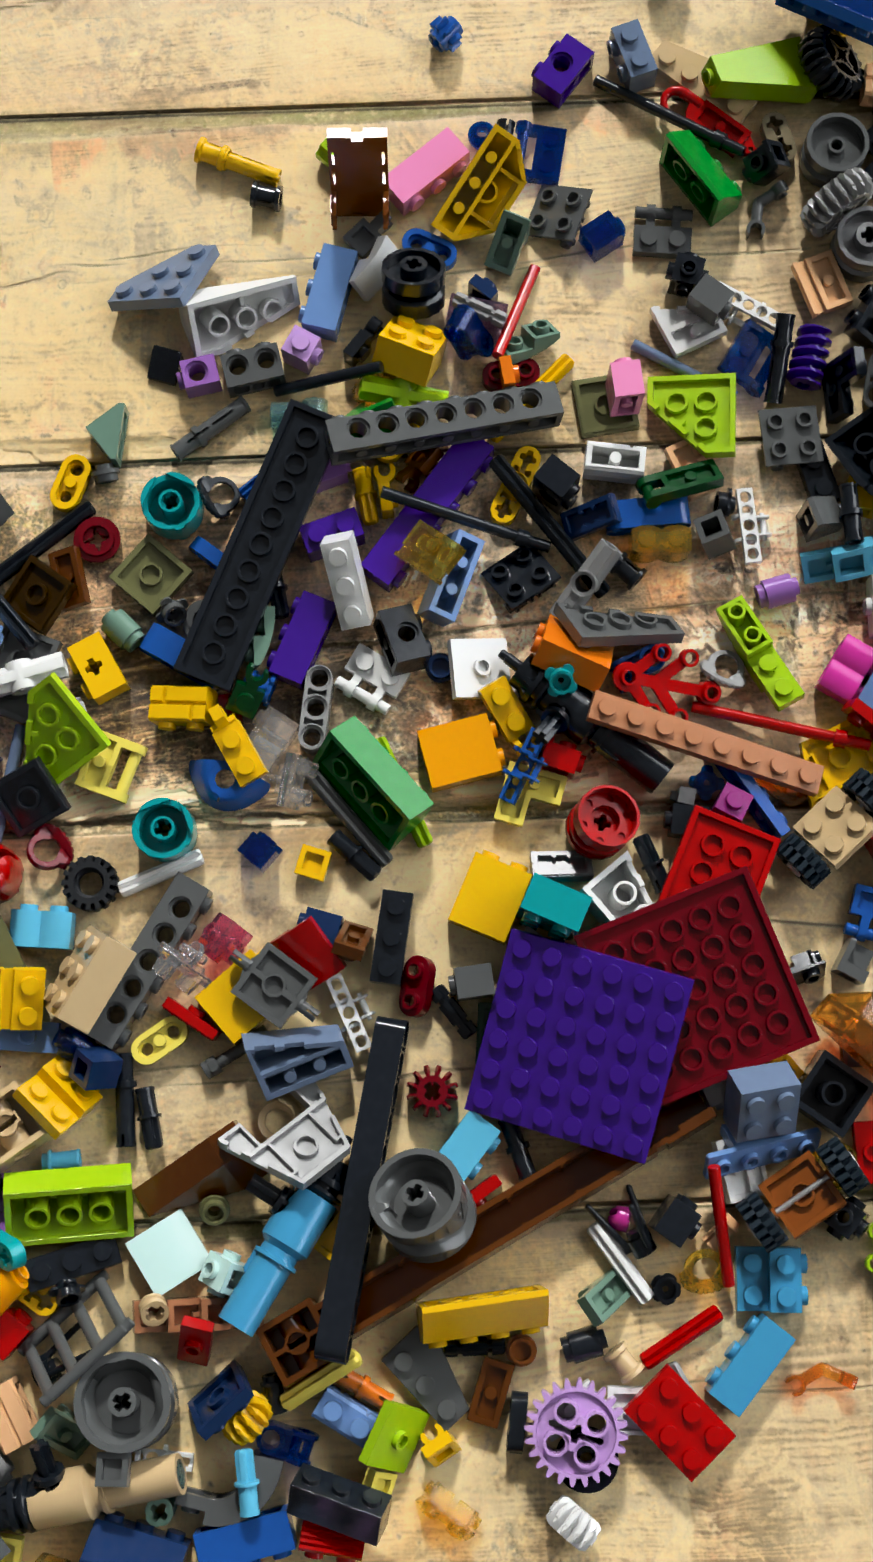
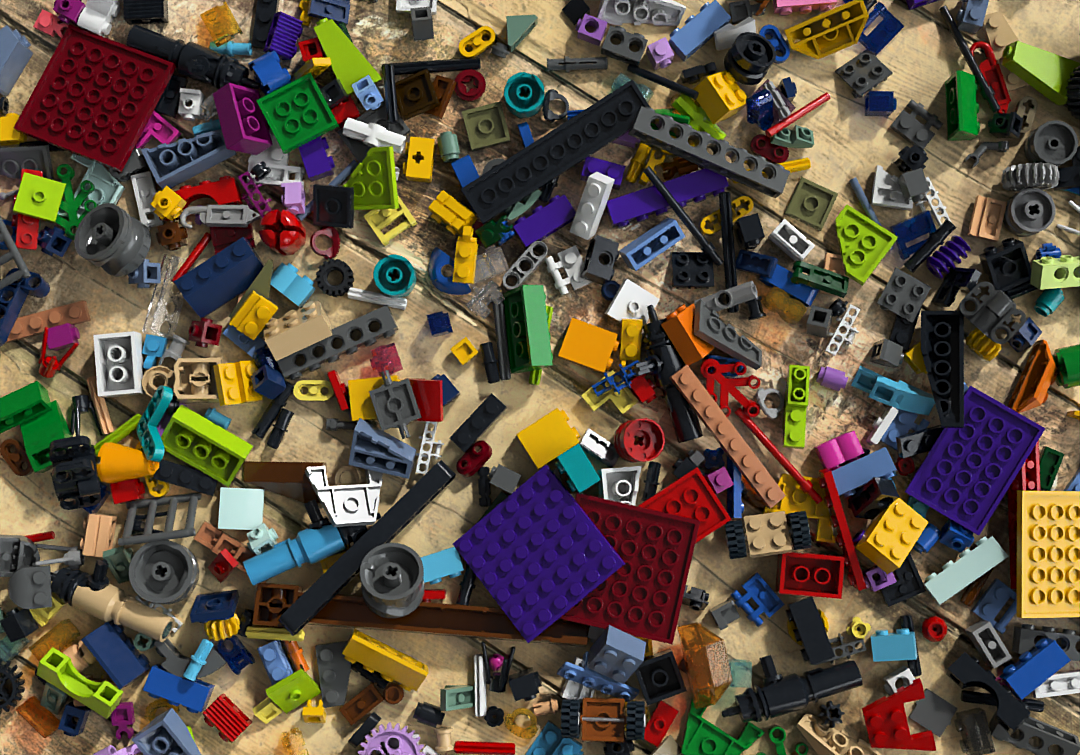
camera: 35 degrees right, 5 degrees up
(67, 1292) = (172, 491): black plate -> none
(113, 1469) = (132, 603): dark grey plate -> none
(156, 1301) = (207, 537): tan bush -> none
(174, 617) = (483, 155): dark grey plate -> none
(191, 974) = (357, 358): clear hips -> none
(214, 1217) = (277, 506): olive plate -> none
(339, 1504) = (239, 705): black brick -> none
(352, 941) = (455, 409): reddish brown plate -> none
(421, 1091) = (436, 517): dark red gear -> none
(430, 552) = (649, 221): clear yellow plate -> none
(508, 242) = (821, 71): sand green slope -> none
(508, 372) = (767, 148): orange plate -> none
(567, 686) = (670, 351): teal plate -> none
(624, 387) = (827, 202): bright pink brick -> none
(721, 1226) = (547, 704): red bar -> none
(851, 513) = (904, 364): black pin -> none

